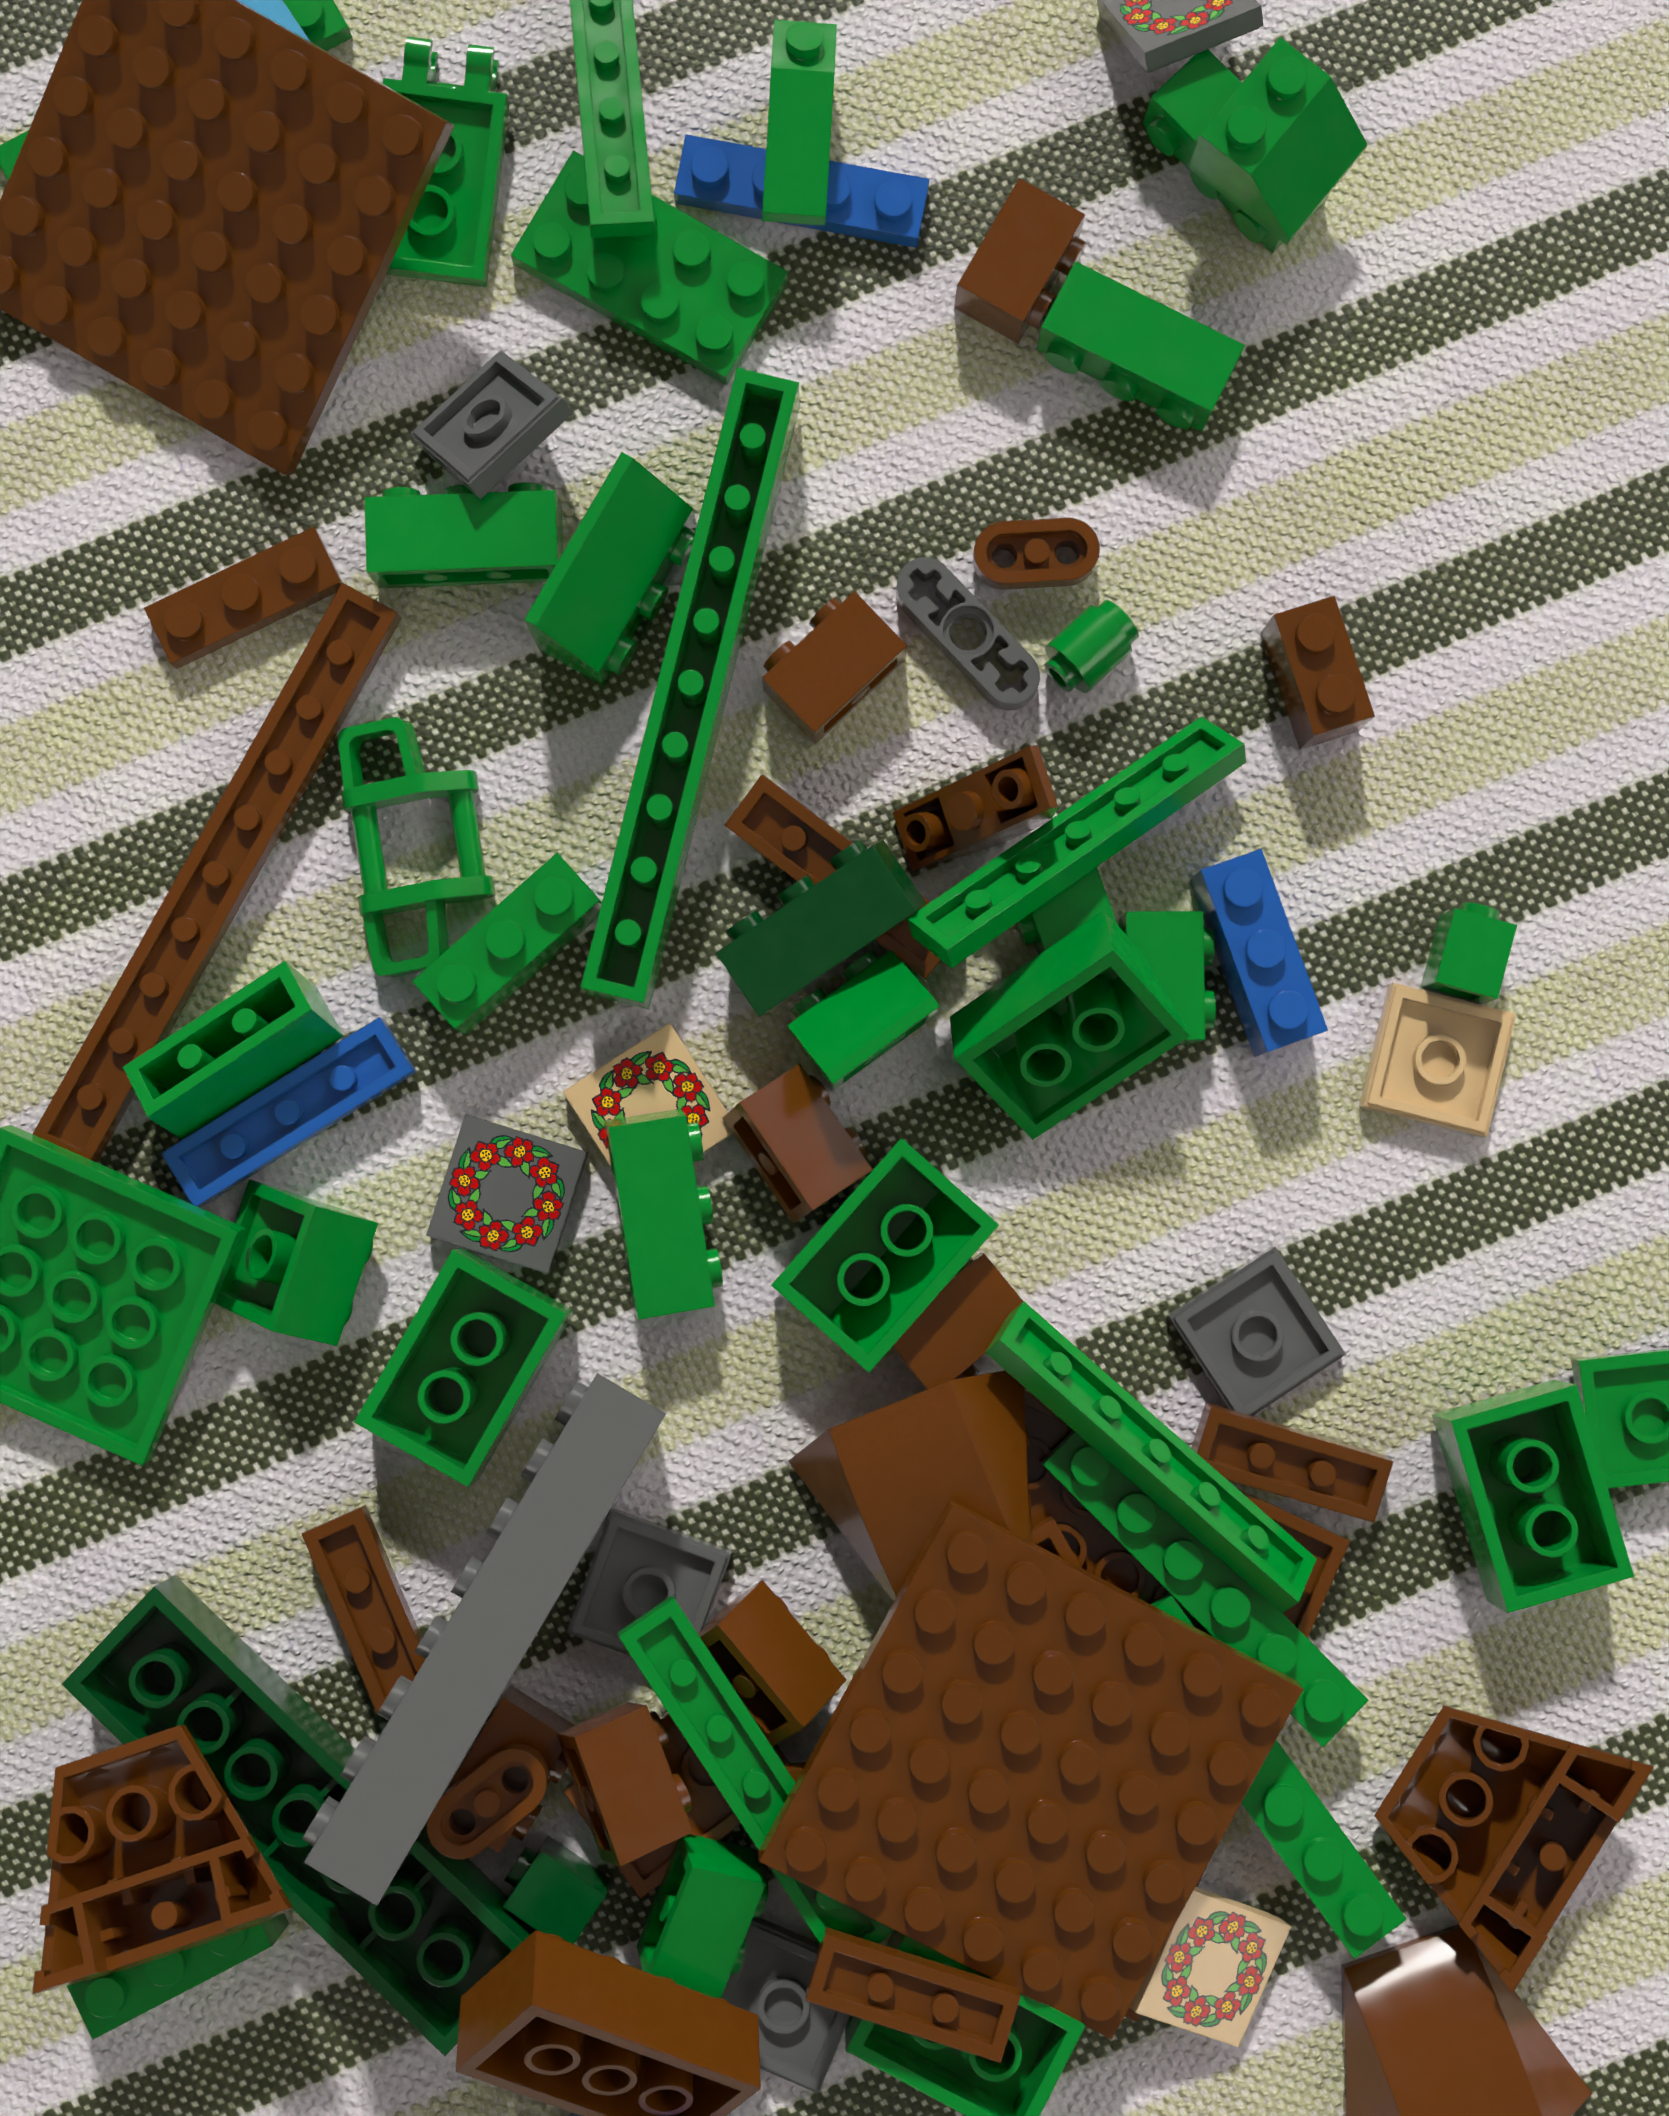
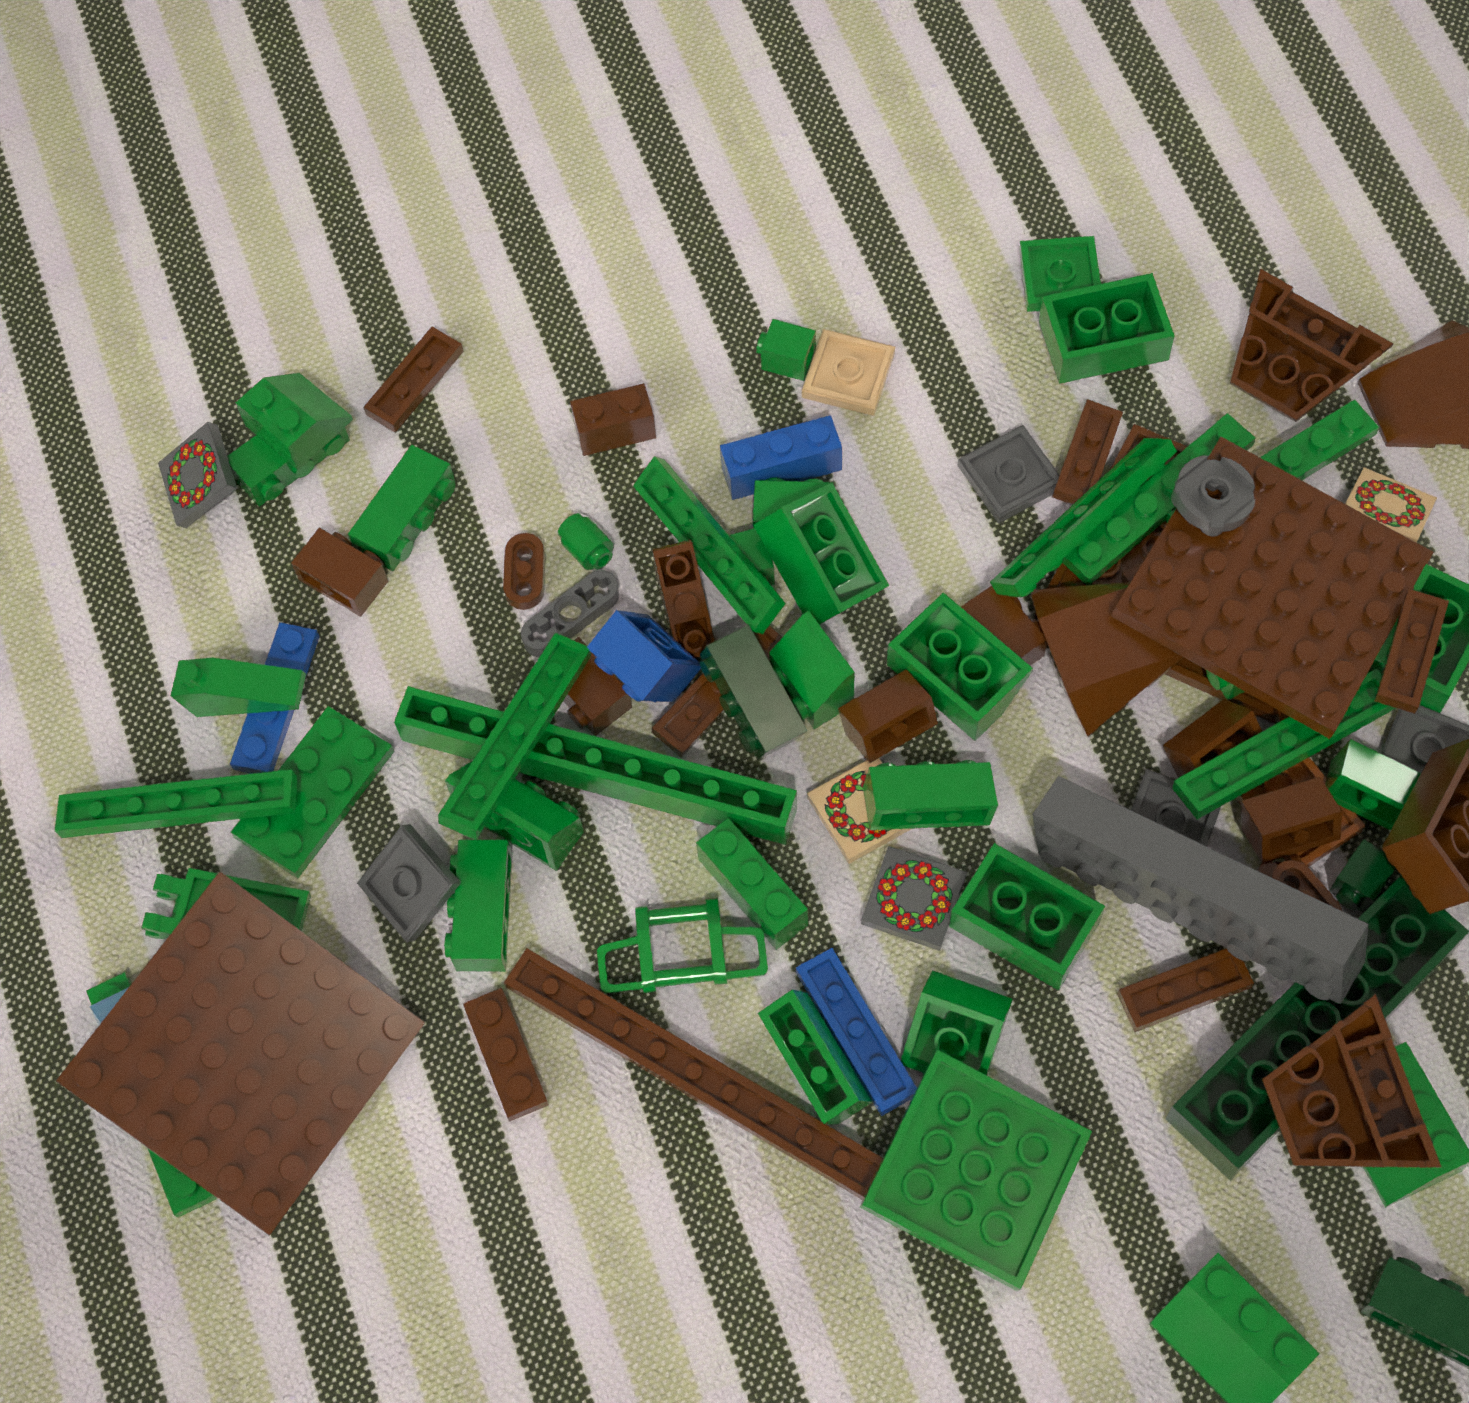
camera: 80 degrees left, 20 degrees down
(702, 553) = (514, 737): none -> green plate
(869, 750) = (643, 657): none -> blue brick
(1170, 1715) = (1207, 513): none -> dark grey plate
(1383, 341) = (413, 379): none -> reddish brown plate

